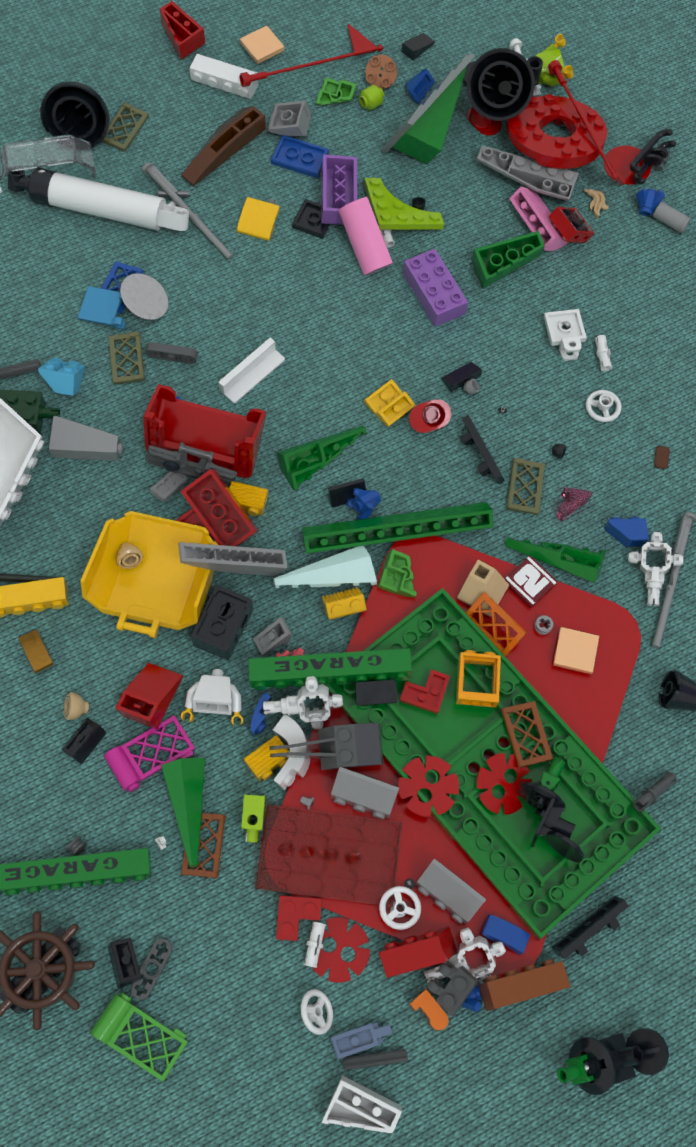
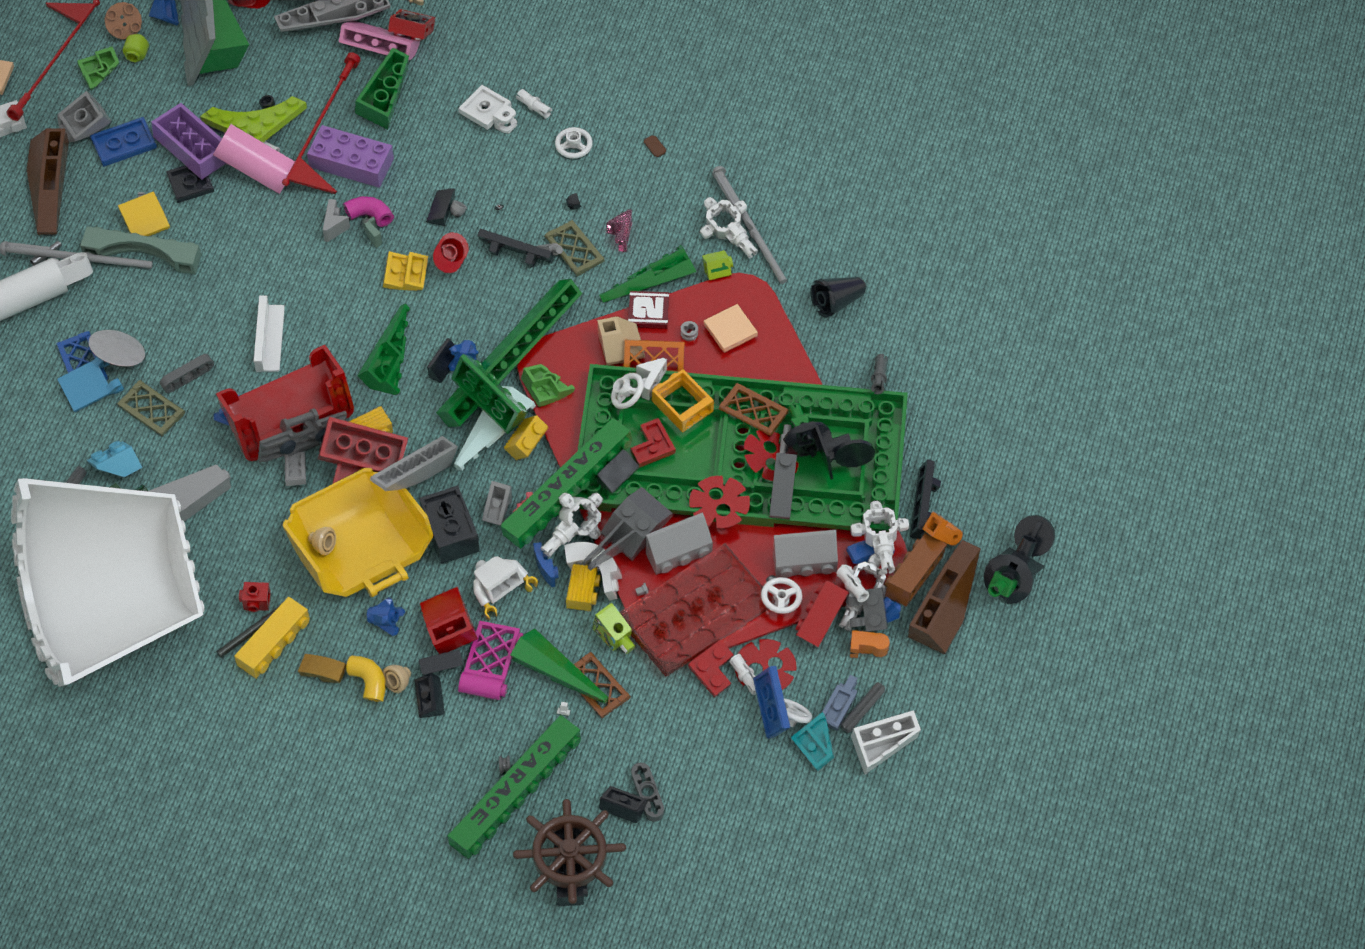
camera: 40 degrees left, 10 degrees down
(47, 556) = (255, 596): none -> red brick
(57, 688) = (371, 674): none -> yellow cylinder
(113, 723) = (440, 662): none -> black slope
(114, 652) = (385, 616): none -> blue rock
(115, 1019) = (657, 843): bright green piece -> none
(212, 215) = (180, 255): none -> sand green arch
(302, 993) = (771, 702): none -> blue tile
(308, 1055) = (815, 741): none -> teal wing
(344, 547) = (488, 394): none -> green slope
(375, 326) = (334, 223): none -> light grey slope
(389, 271) = (301, 172): none -> red piece
(397, 348) = (372, 233): none -> sand green slope
(411, 335) = (369, 206): none -> dark pink cylinder
(442, 630) = (622, 389): none -> white piece
(455, 969) = (852, 584): none -> white pin
(478, 638) = (651, 373): none -> white slope
(485, 820) = (783, 486): none -> dark grey slope
(507, 474) = (554, 247): none -> light grey bar
(515, 942) = (882, 542): none -> white piece
(528, 1034) = (946, 601): none -> reddish brown wedge
(529, 778) = (783, 446): none -> light grey bar
(579, 973) = (942, 529): none -> orange leg
(616, 591) = (717, 265): none -> lime brick
(629, 532) = (684, 217): blue slope -> none

